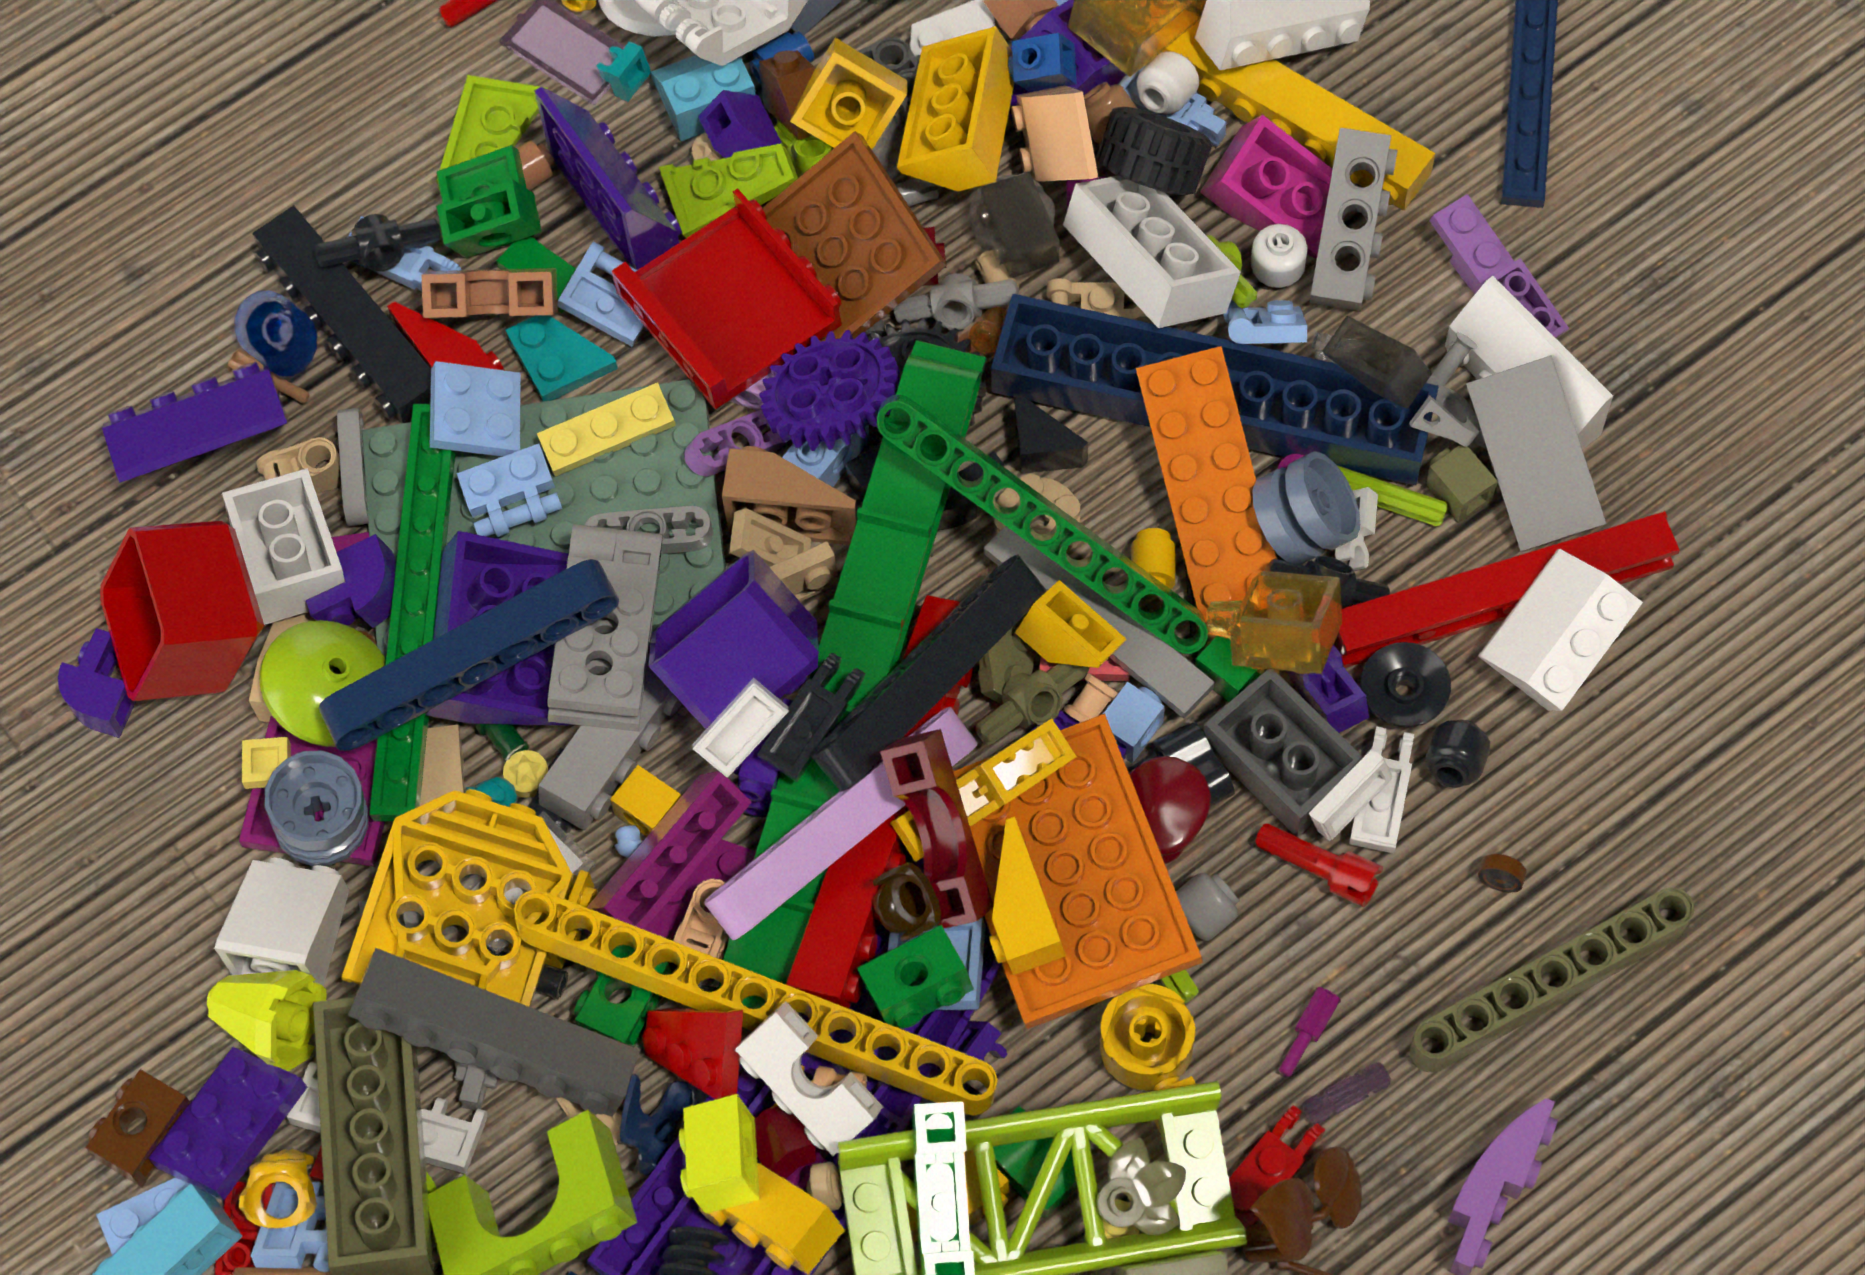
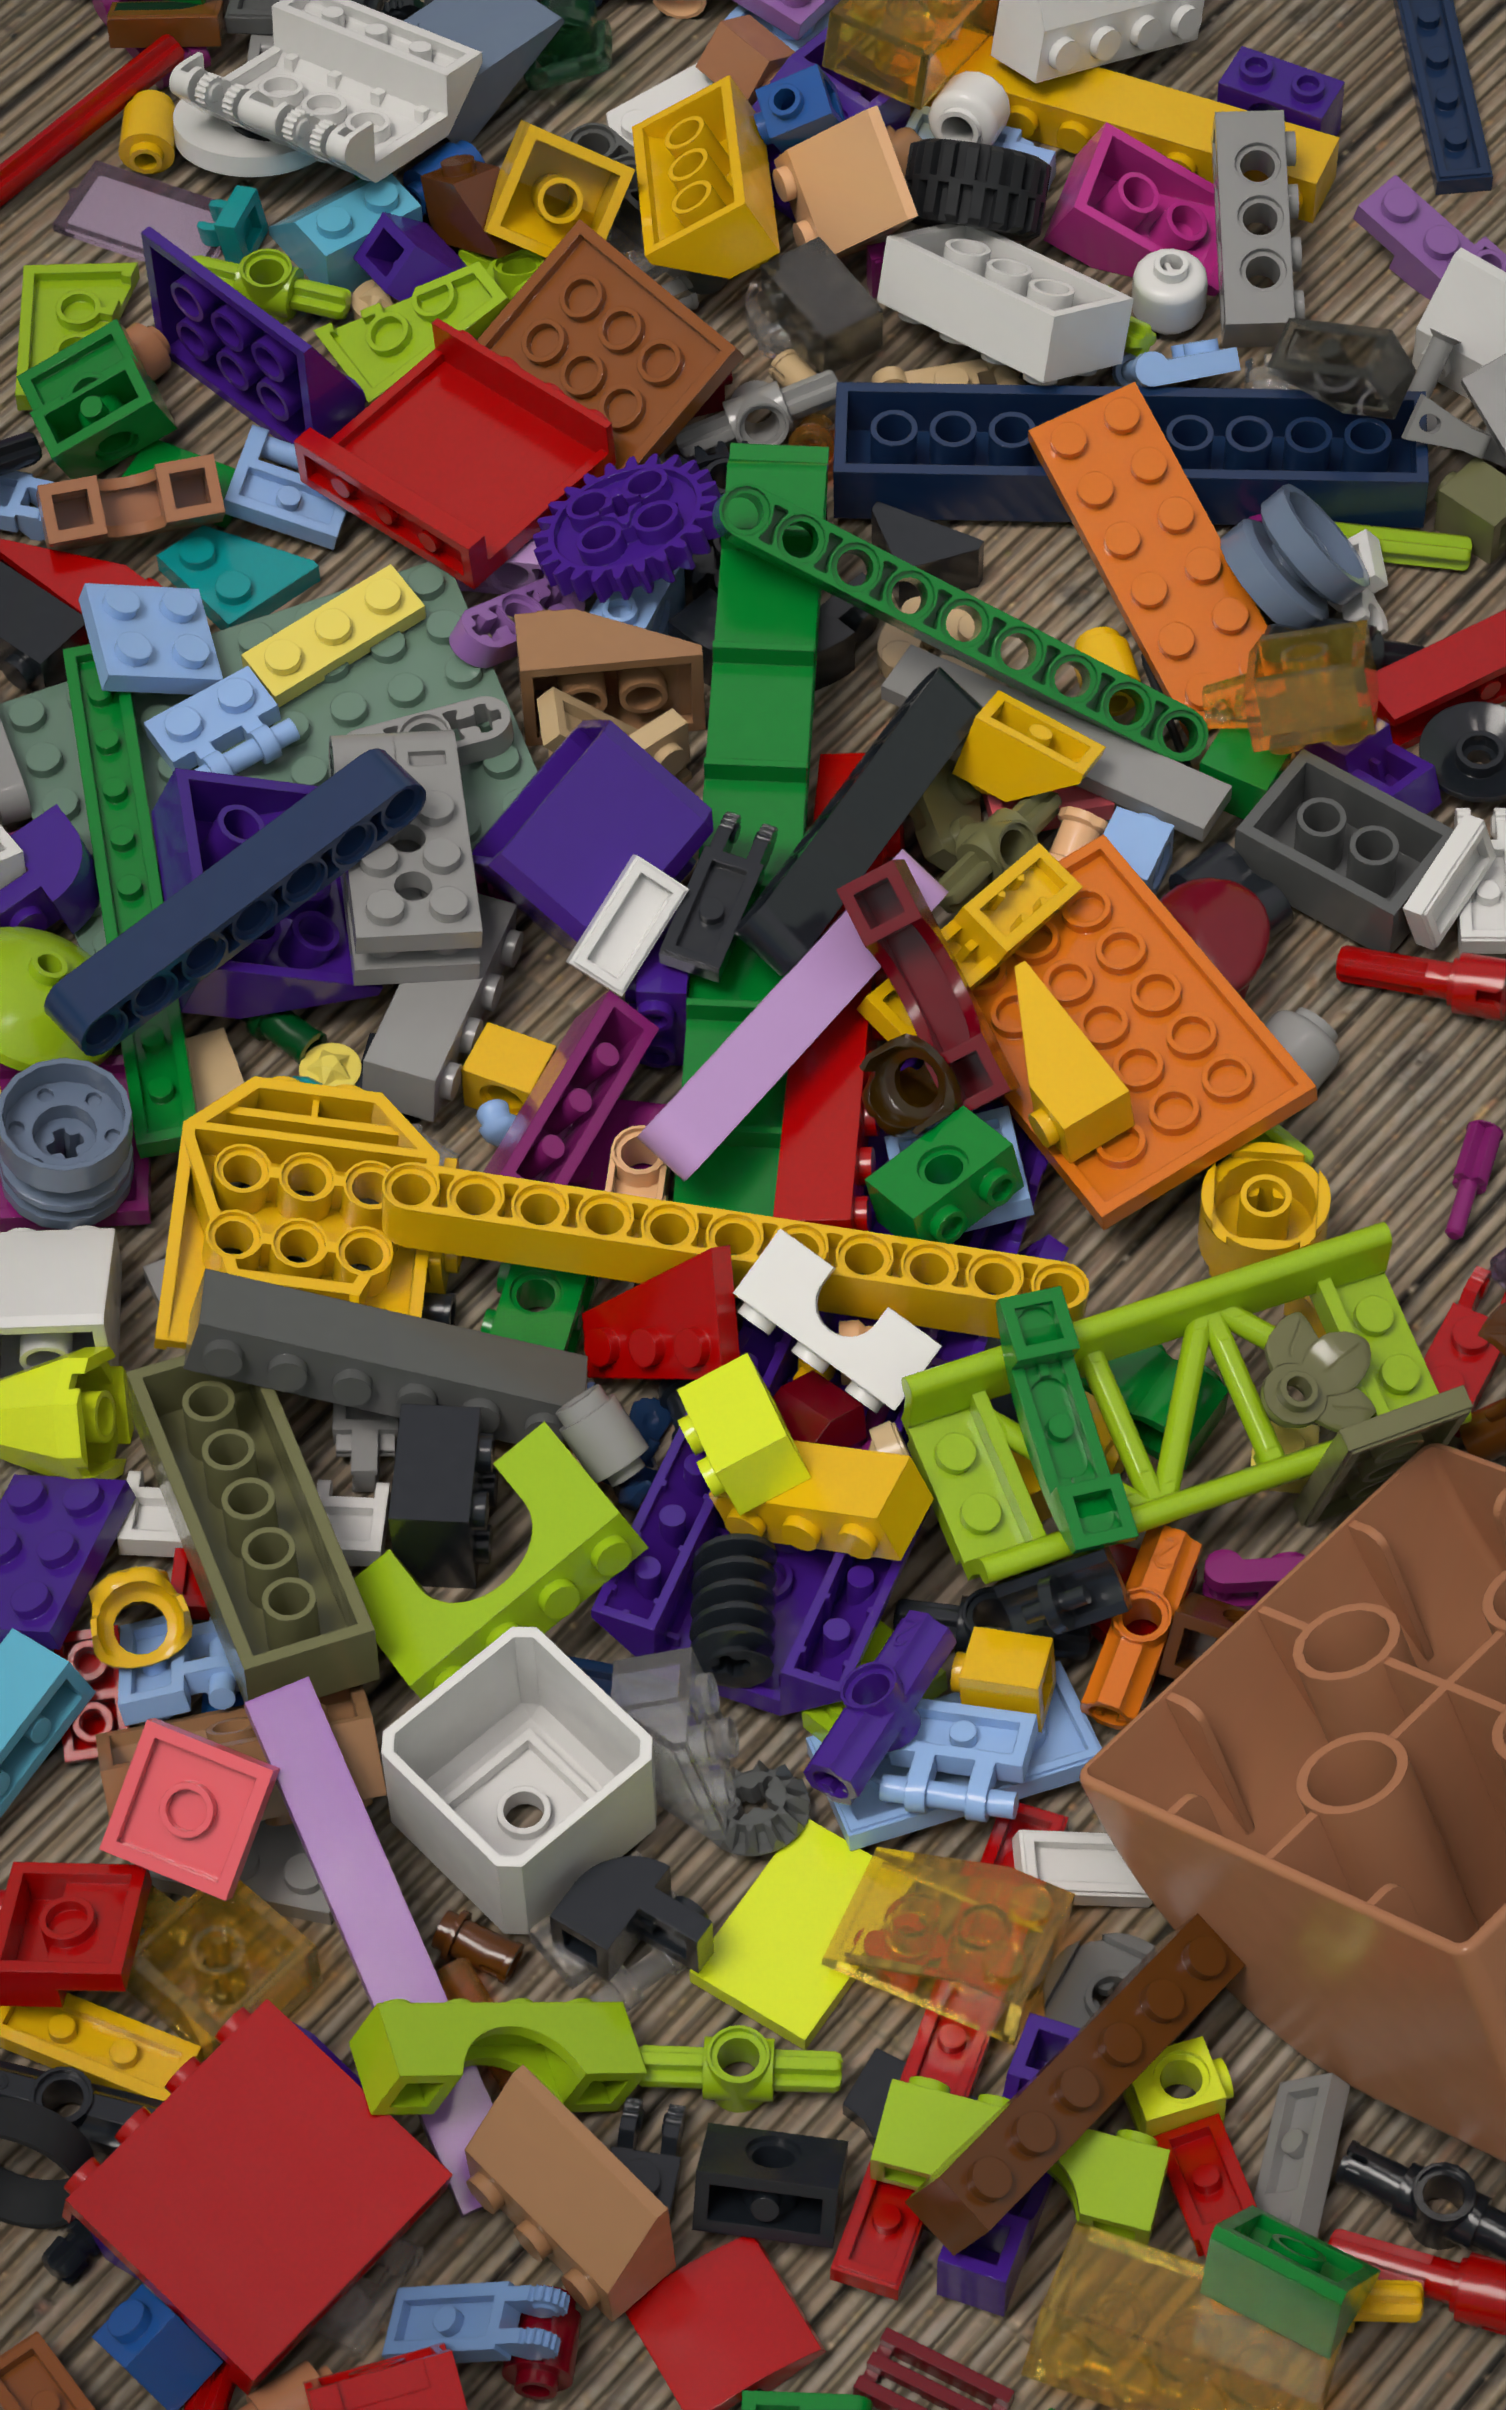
camera: 15 degrees left, 10 degrees down
(511, 1137) = (443, 1494): none -> black brick
(629, 1122) = (602, 1436): none -> light grey brick
(641, 138) = (279, 287): none -> lime axle
(1403, 107) = (1268, 83): none -> dark purple brick

